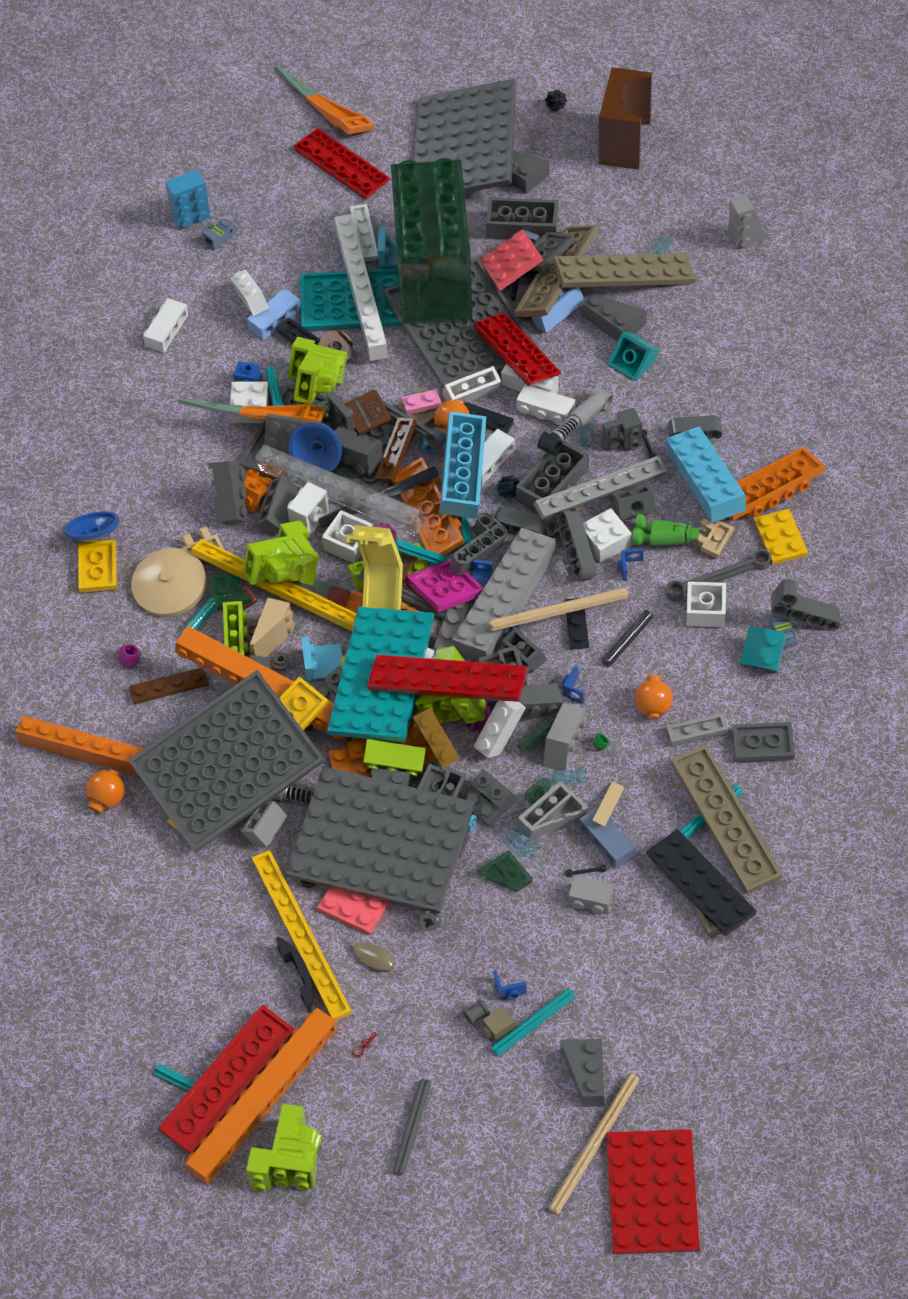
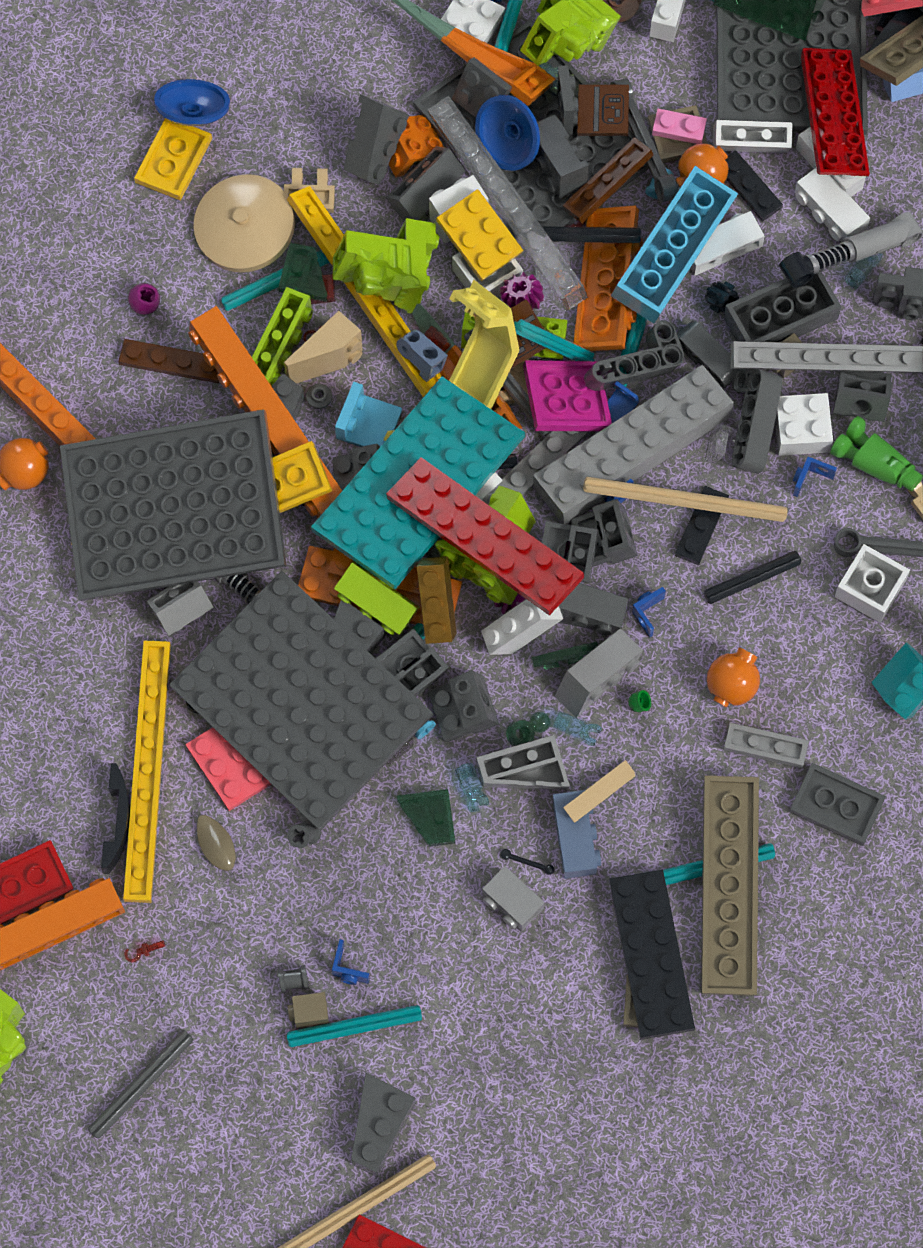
camera: 25 degrees right, 15 degrees up
(332, 513) = (479, 235): none -> yellow plate
(336, 601) = (422, 353): none -> sand blue leg

